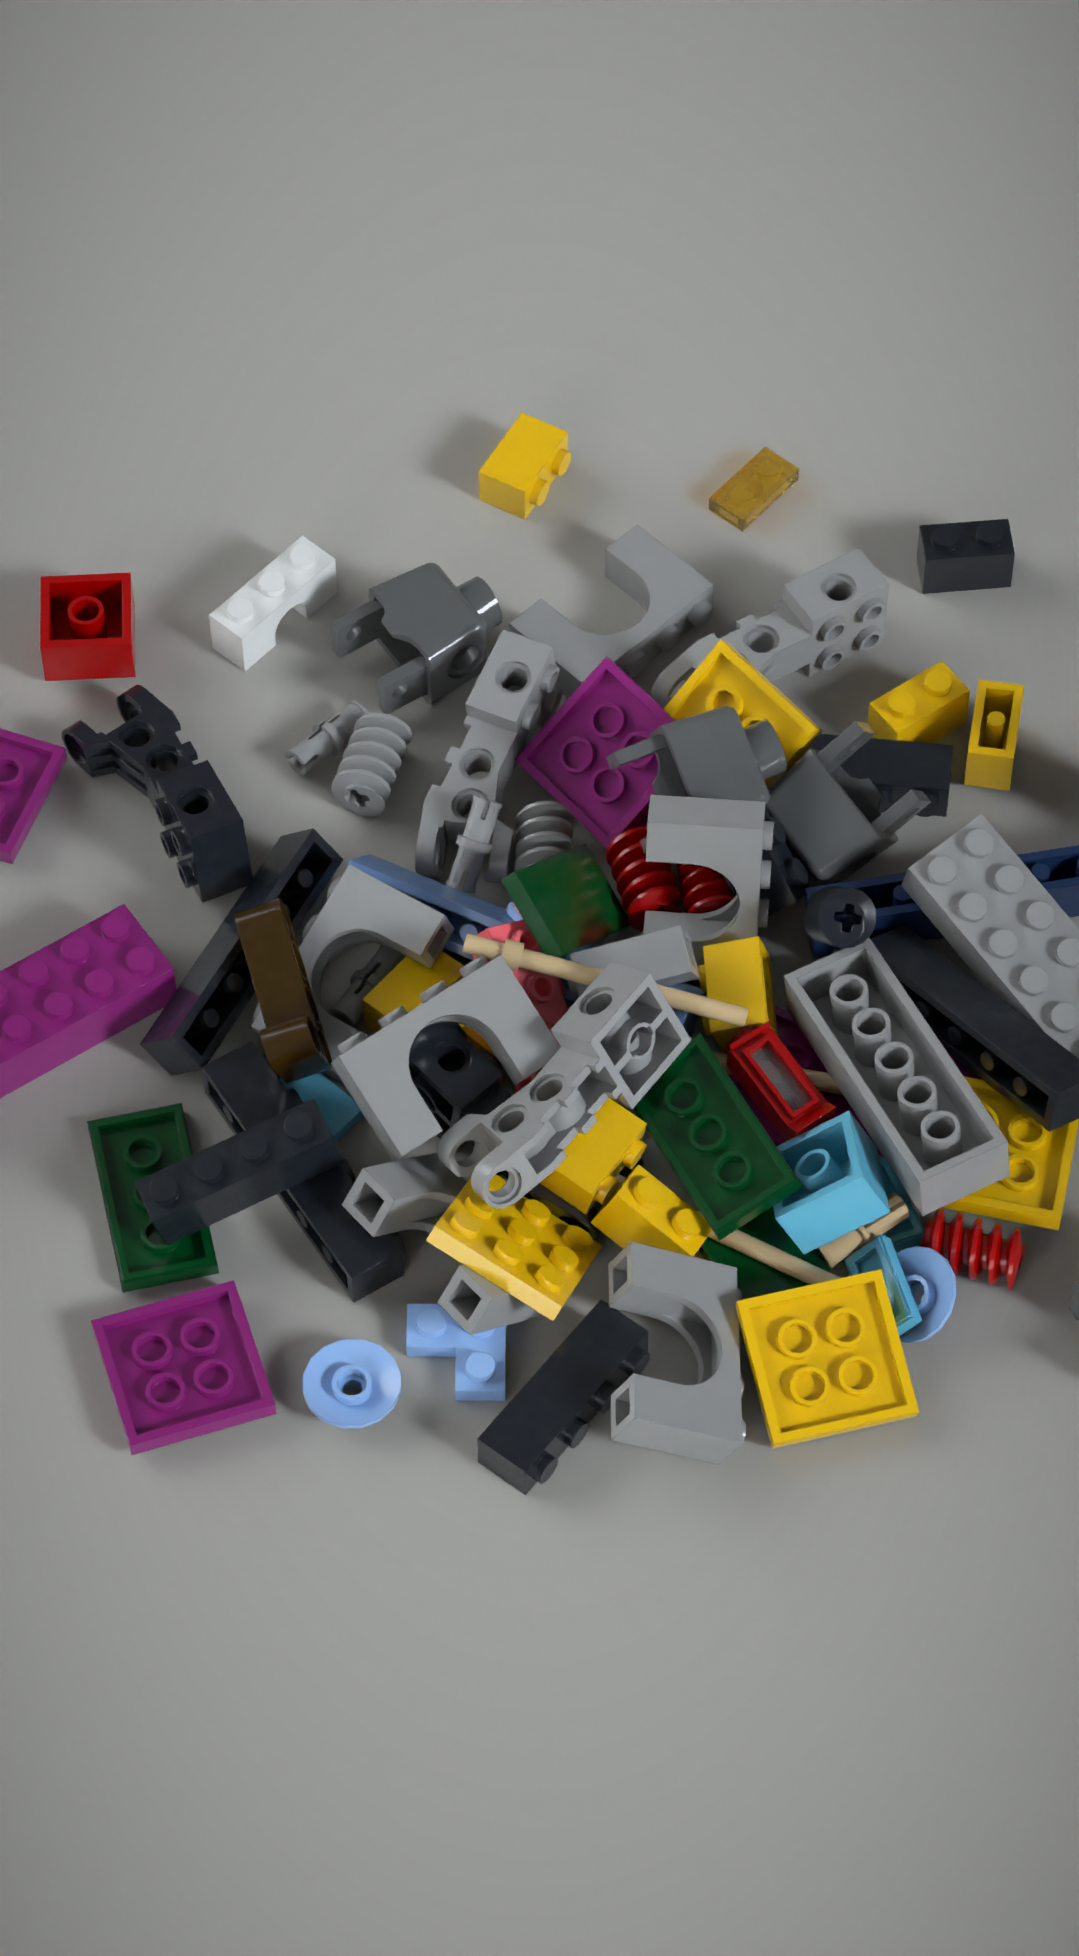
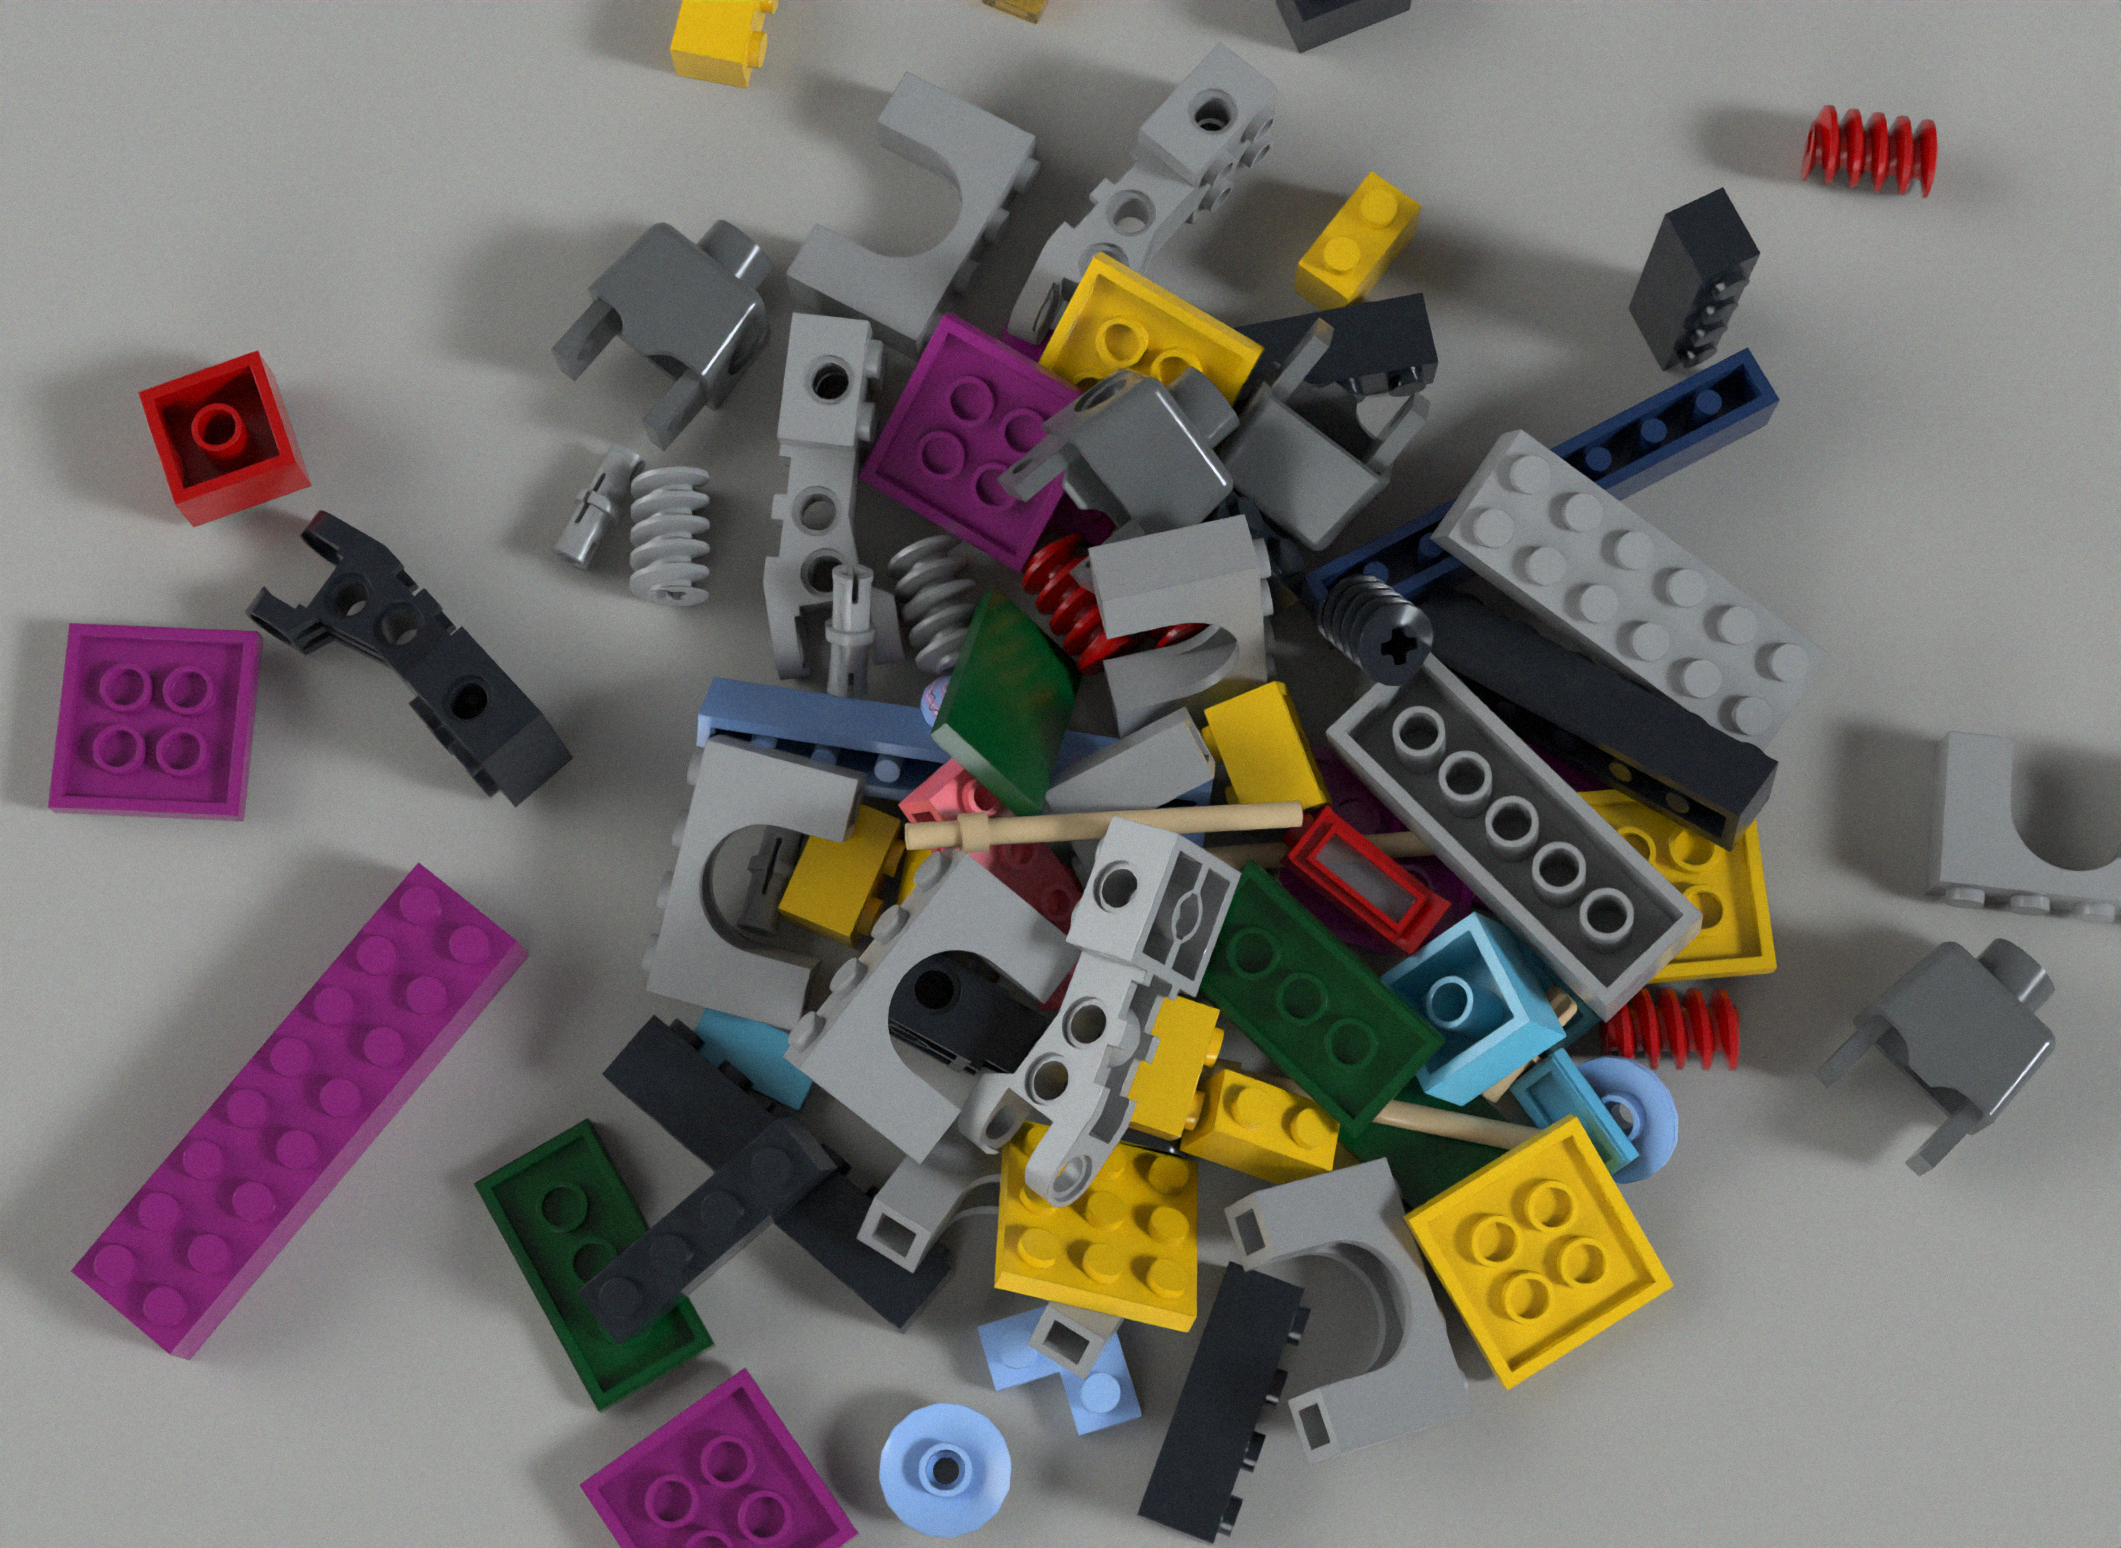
camera: 15 degrees left, 20 degrees up
(220, 979) = (595, 877): black brick -> none
(248, 620) = (440, 356): white arch -> none
(293, 1029) = (678, 949): dark brown beam -> none
(994, 735) = (1468, 256): yellow brick -> none

